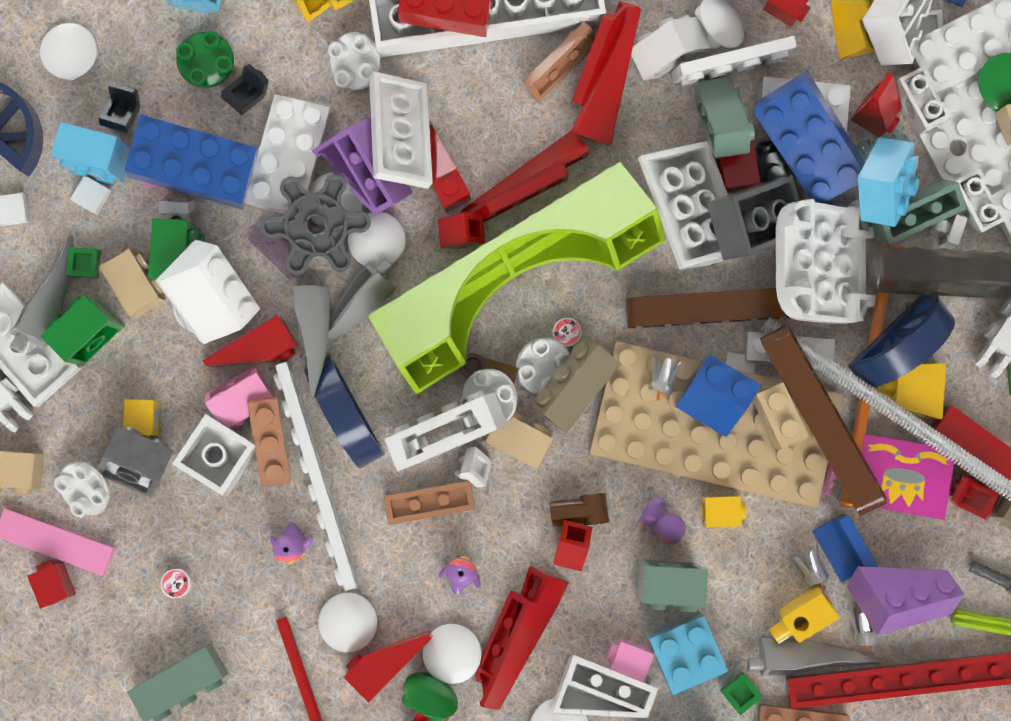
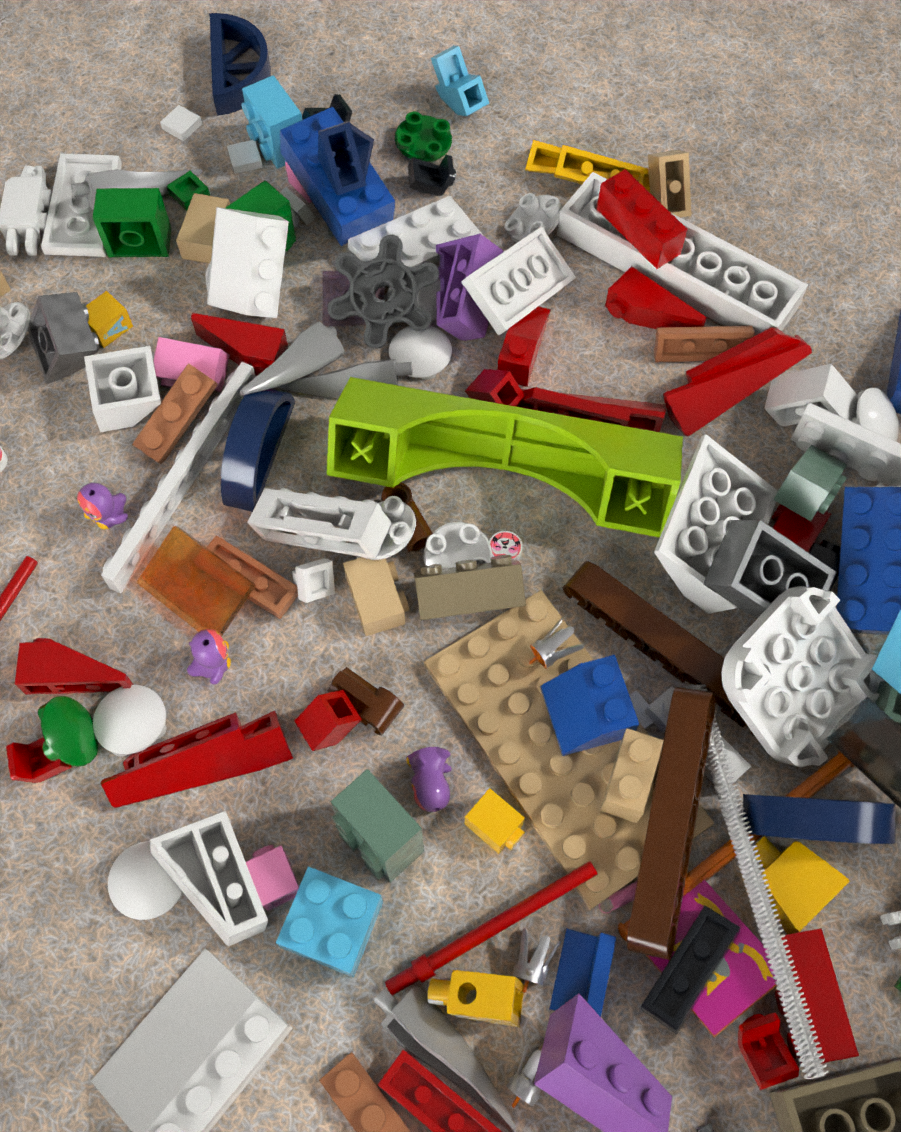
camera: 40 degrees right, 20 degrees down
(68, 51) = (333, 64): white dish -> none
(200, 154) = (345, 156): none -> dark blue slope
(347, 622) = (77, 612): white dish -> none
(404, 538) = (195, 582): none -> clear orange tile
(495, 63) = (649, 304): none -> red slope
(741, 693) = (344, 1019): green plate -> none
(757, 624) = (425, 966): none -> red bar
(902, 494) = (690, 969): none -> black tile

